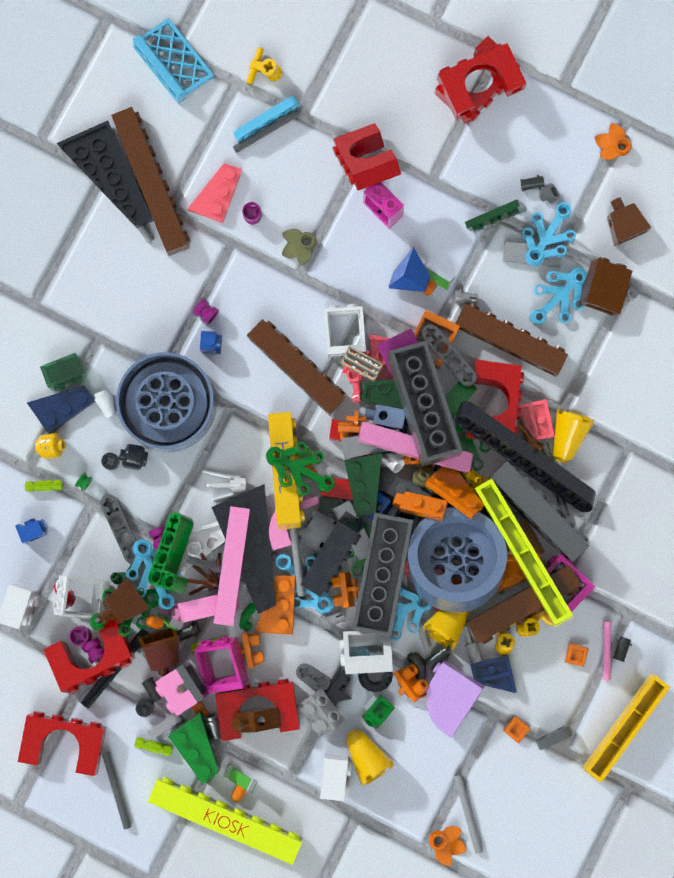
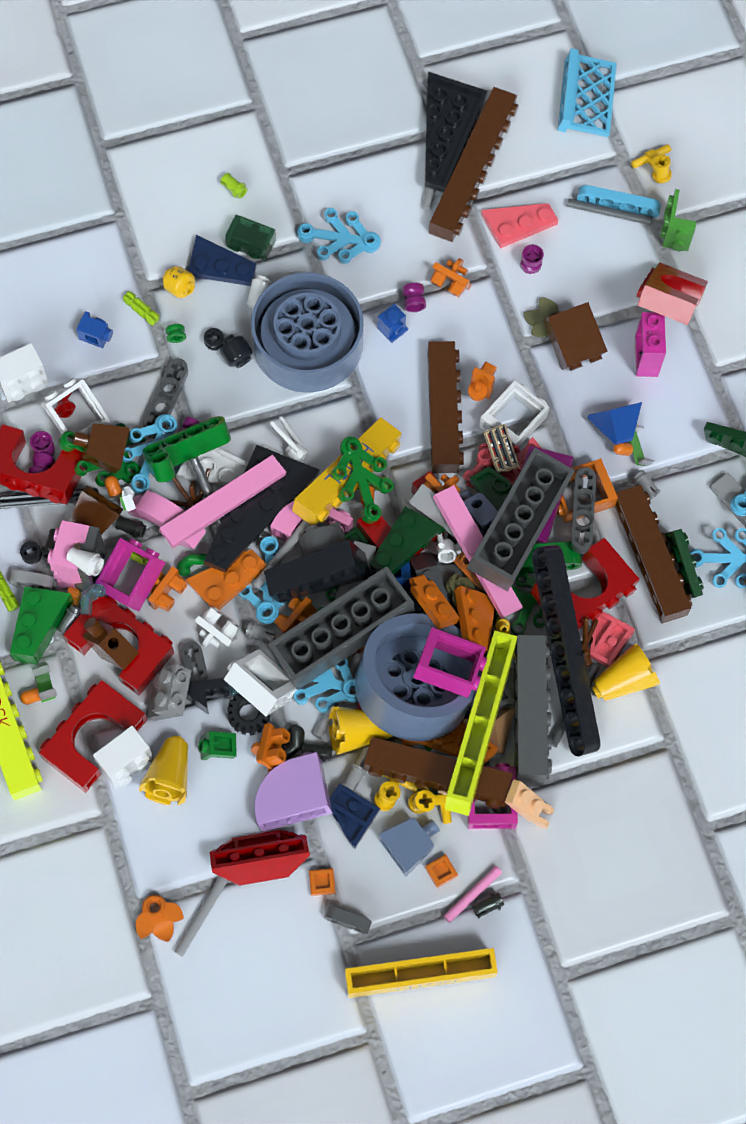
camera: 40 degrees right, 15 degrees down
(15, 345) = (238, 189): none -> lime pin
(119, 313) = (341, 237): none -> medium azure plant
(199, 694) = (86, 561): none -> white cone
(212, 703) = (89, 595): none -> clear light blue arm
(223, 273) = (442, 273): none -> orange hips
(293, 808) = (100, 703): none -> red arch
(306, 330) = (482, 382): none -> orange hips
(306, 646) = (224, 634): none -> white hips
(325, 109) = (676, 231): none -> bright green bracket
(331, 241) = (575, 337): none -> reddish brown brick
(455, 546) = (455, 646): none -> dark pink window
(469, 752) = (259, 857): none -> red wedge
(539, 327) = (679, 548): none -> dark green wing
(544, 658) = (409, 843): none -> sand blue torso
(591, 570) = (528, 804): none -> light nougat hinge

